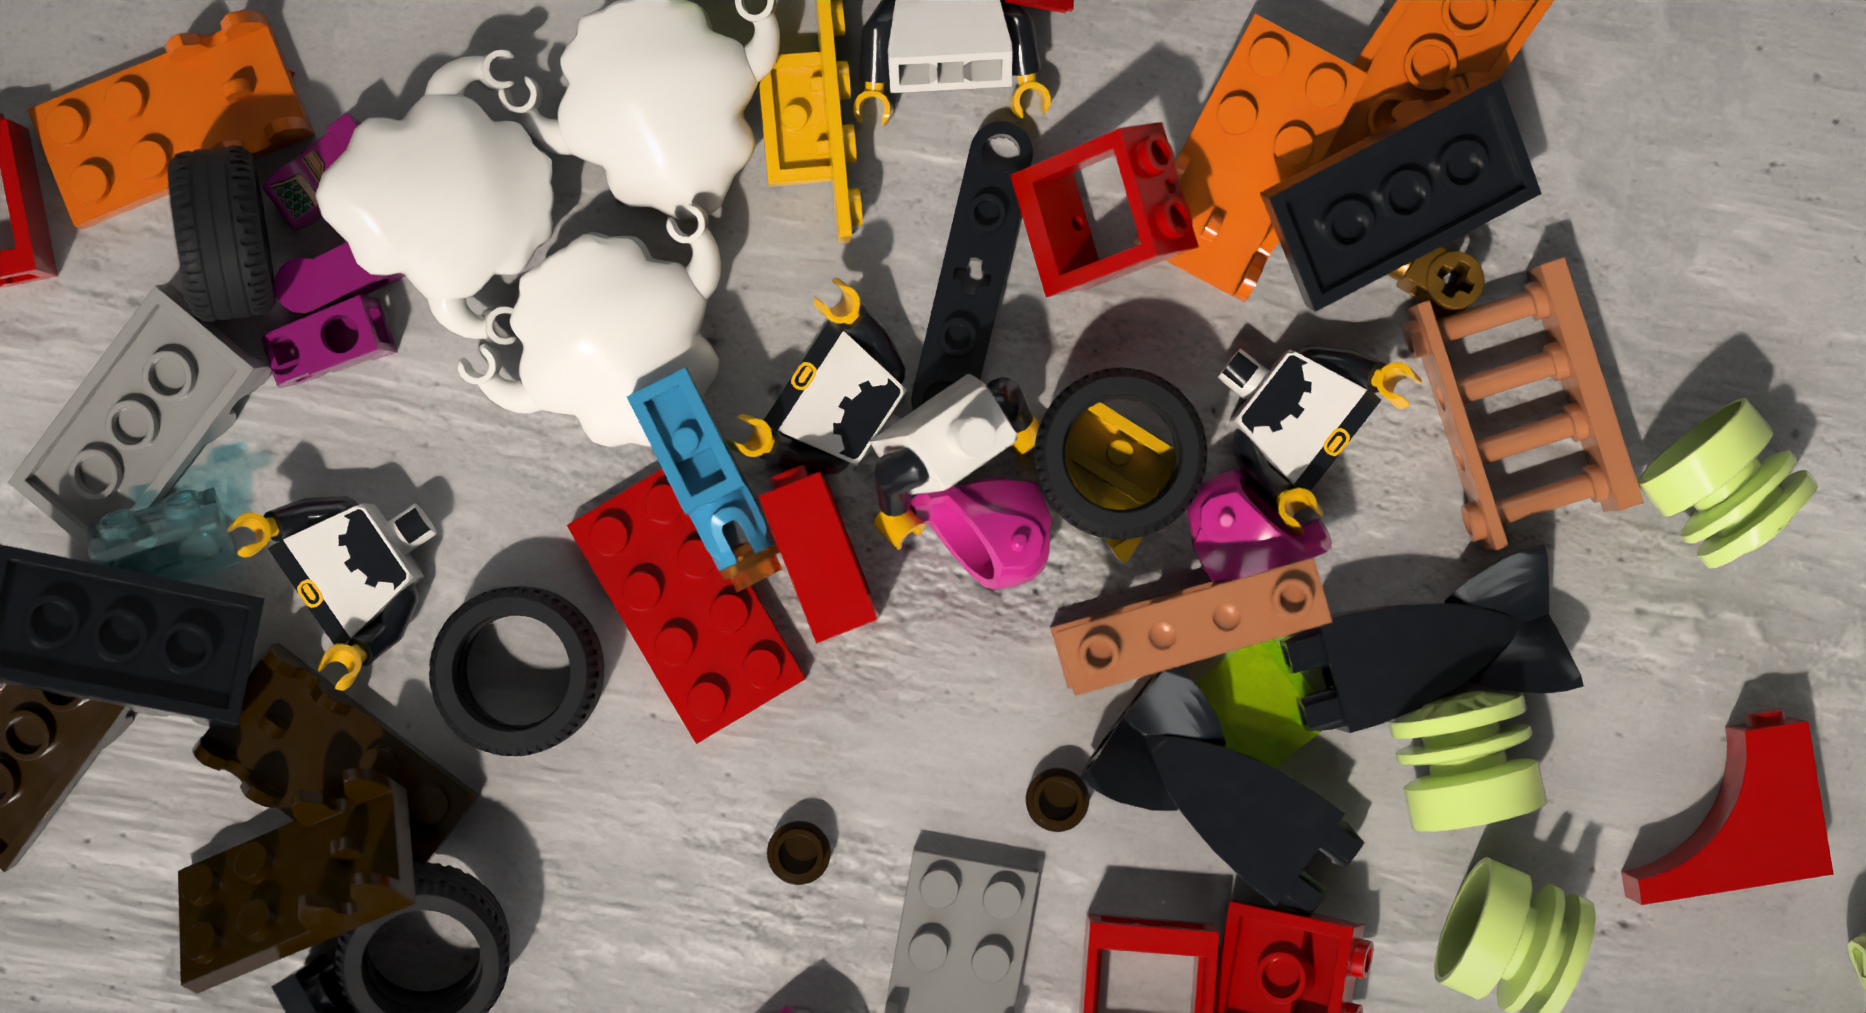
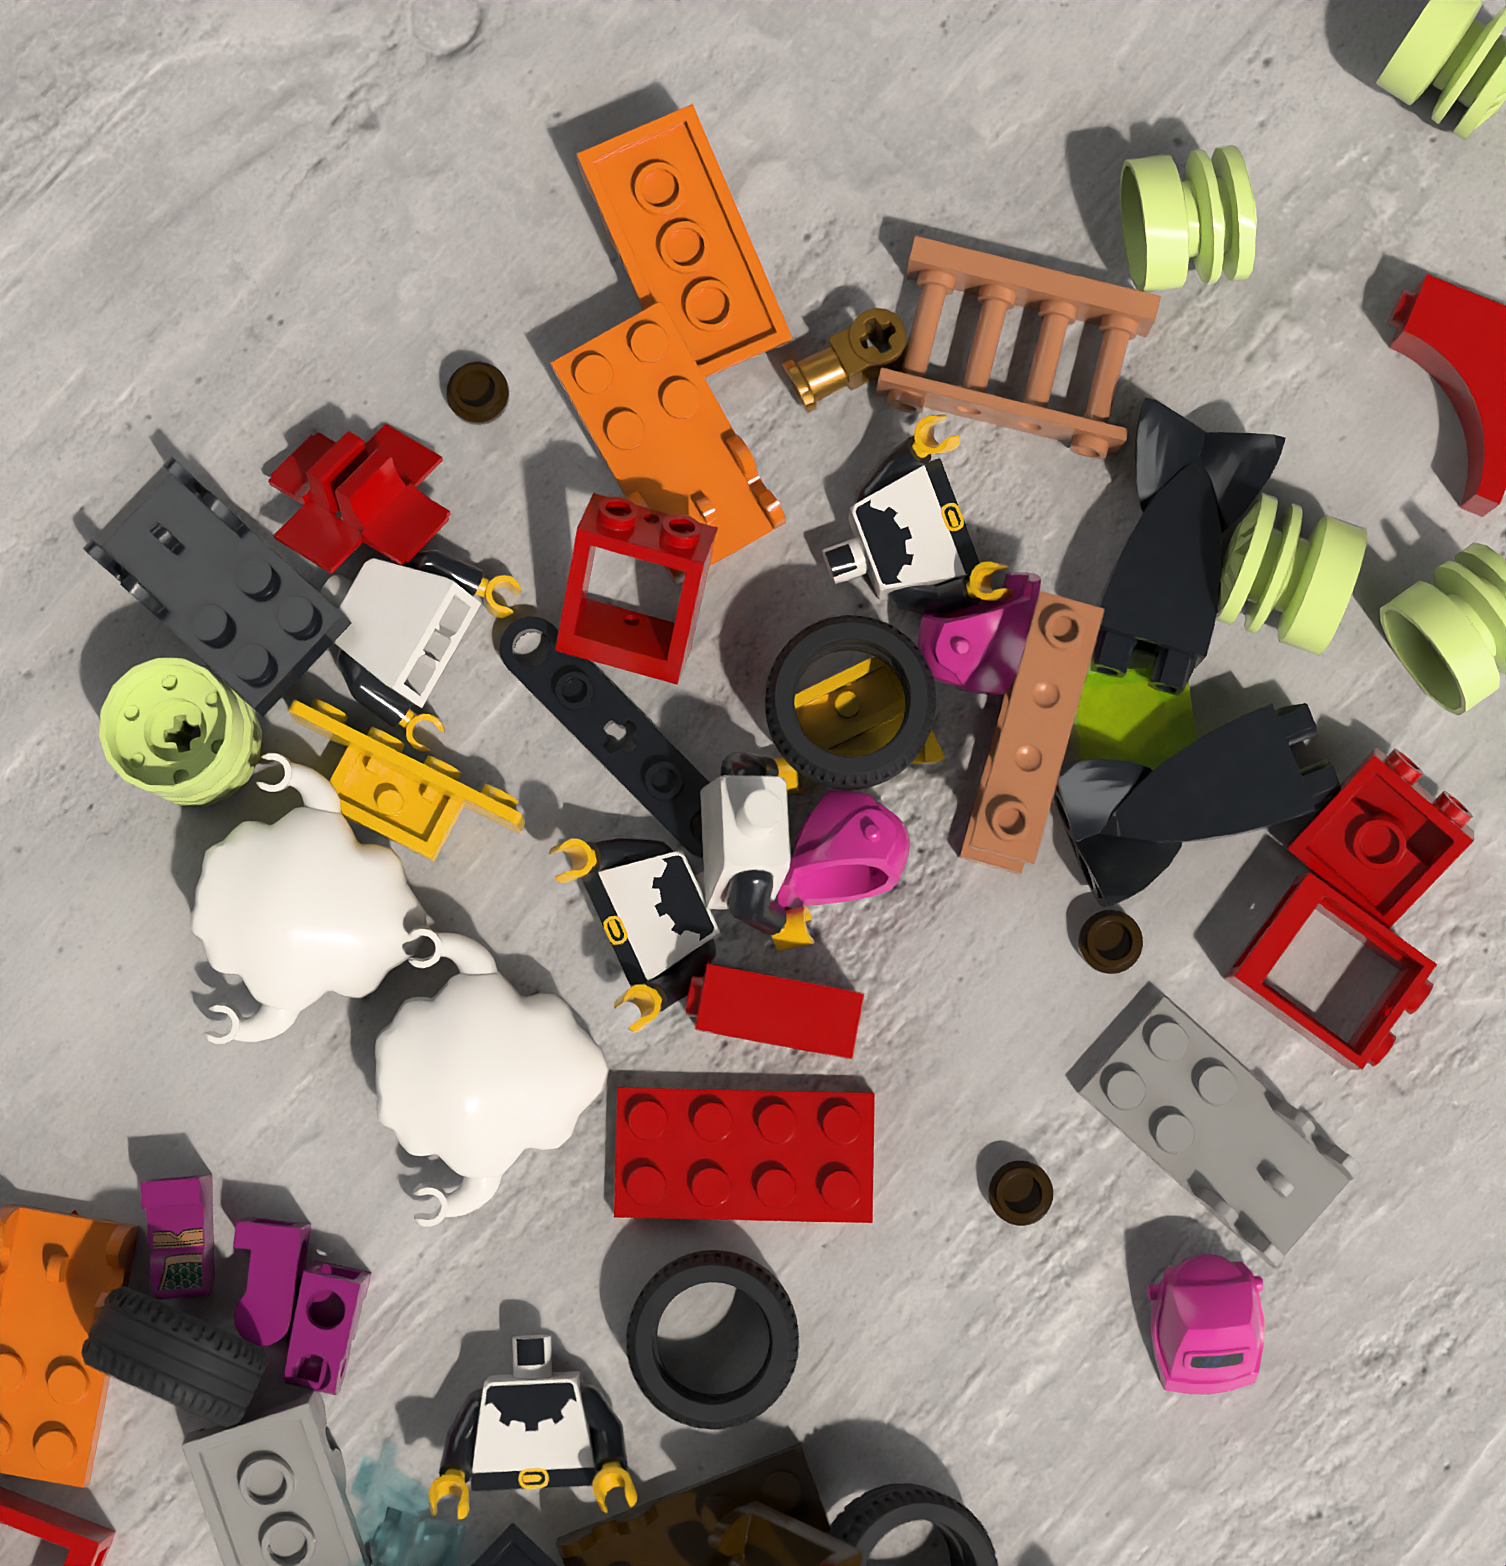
camera: 60 degrees left, 5 degrees down
(444, 196) = (266, 1142): white piece -> none
(706, 479) = (652, 1067): dark azure plate -> none
(1402, 190) = (775, 332): black hinge -> none

